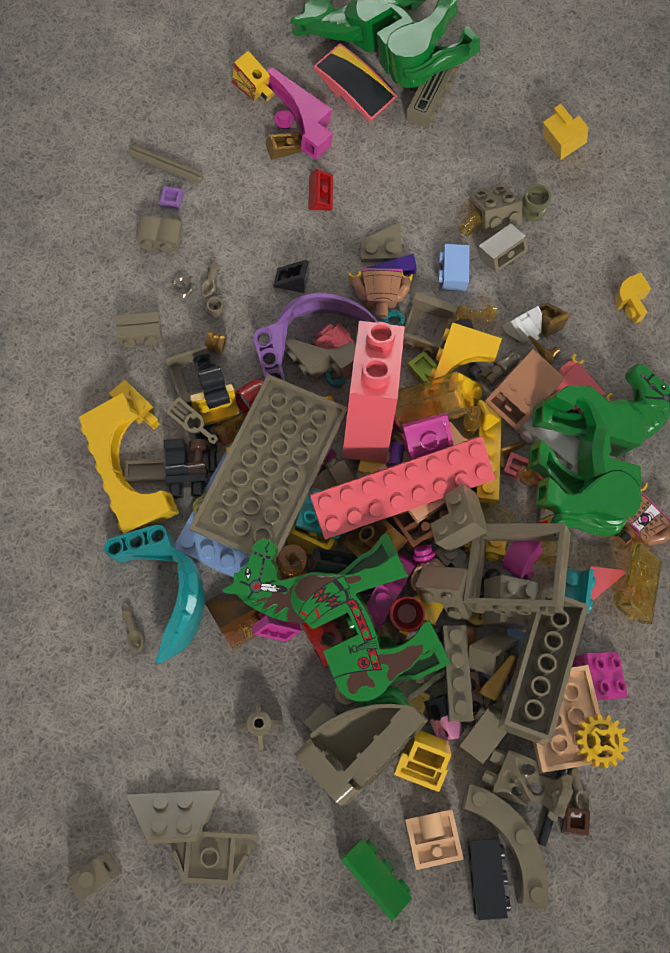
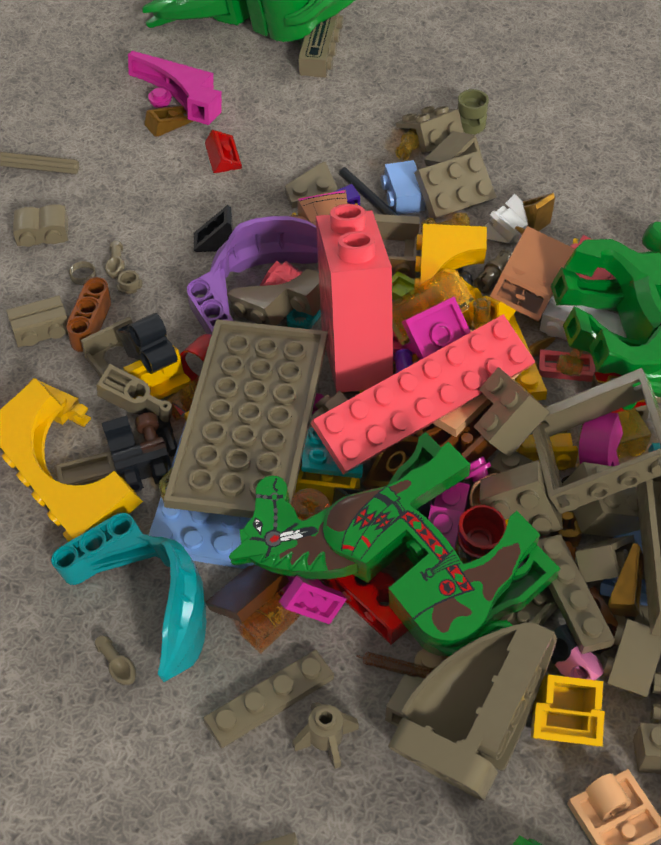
camera: 10 degrees left, 20 degrees down
(171, 197) = (46, 192): medium lavender tile -> none
(177, 322) = (88, 311): none -> dark orange beam
(216, 342) = (138, 312): pearl gold wheel -> none
(229, 687) = (268, 698): none -> dark tan plate
(251, 77) = (112, 64): yellow torso -> none
(323, 688) = (398, 671): none -> dark orange piece
(354, 82) = (231, 49): black slope -> none
(426, 267) = (366, 192): none -> black piece
(495, 279) = (455, 185): none -> dark tan plate
(564, 133) = (480, 45): yellow plate -> none
(629, 296) = (616, 174): yellow brick -> none

